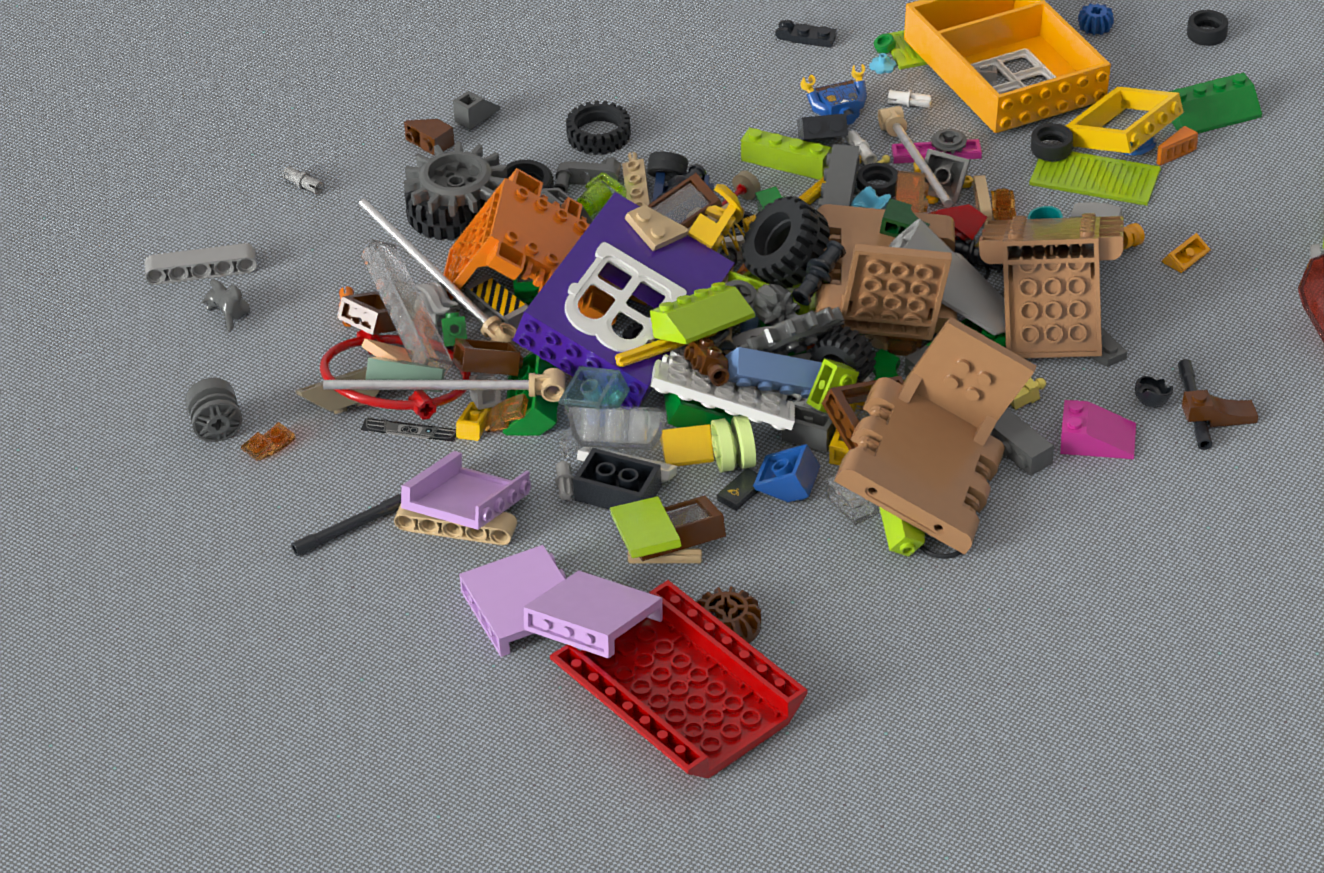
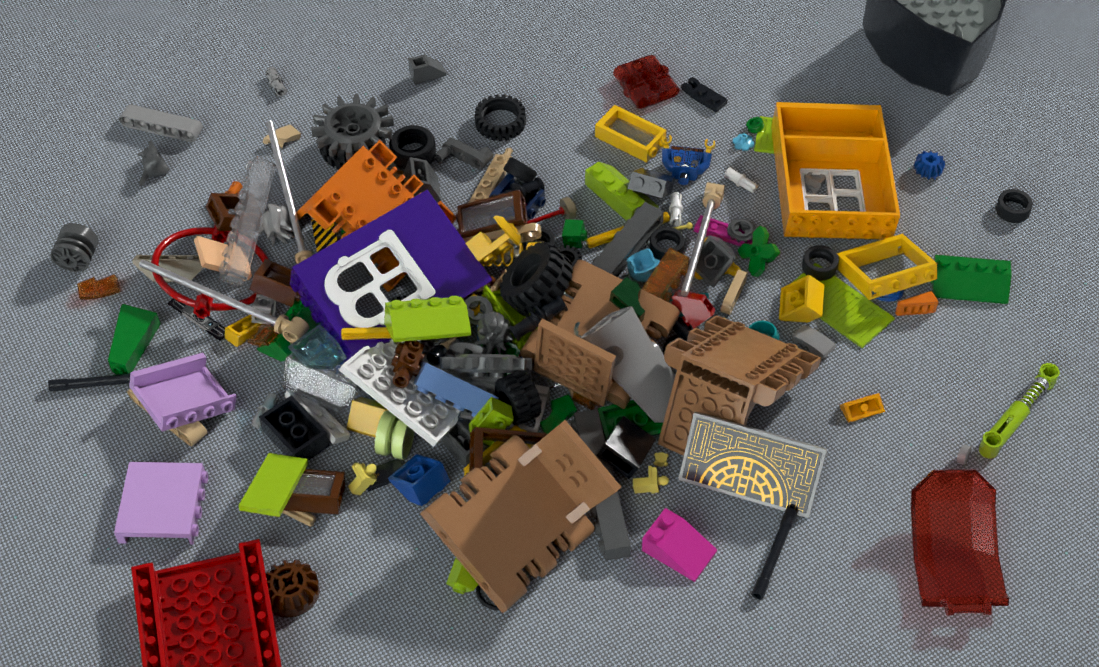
camera: 25 degrees right, 10 degrees up
(351, 469) = (131, 338): none -> green slope
(358, 228) = (284, 134): none -> tan slope
(388, 369) = (204, 274): sand green slope -> none
(428, 133) = (382, 79): reddish brown slope -> none
(453, 327) = (278, 249): green brick -> none
(589, 612) = (184, 542): lavender panel -> none
(598, 193) = (455, 176): clear neon green piece -> none
(654, 227) = (440, 230): tan wing -> none
(729, 495) = (364, 478): none -> light yellow piece
(734, 40) = (646, 81): none -> clear red connector
(757, 94) = (630, 133): none -> yellow window
(984, 151) = (759, 251): none -> green plant
(1002, 204) = (747, 305): clear orange slope -> none
(1059, 180) = (802, 300): none -> yellow slope
(1123, 330) = (752, 464): none -> piece
(1133, 235) = (824, 373): light orange wheel -> none
(1152, 391) = (746, 527): black hair -> none
(1218, 412) = (786, 569): reddish brown slope -> none

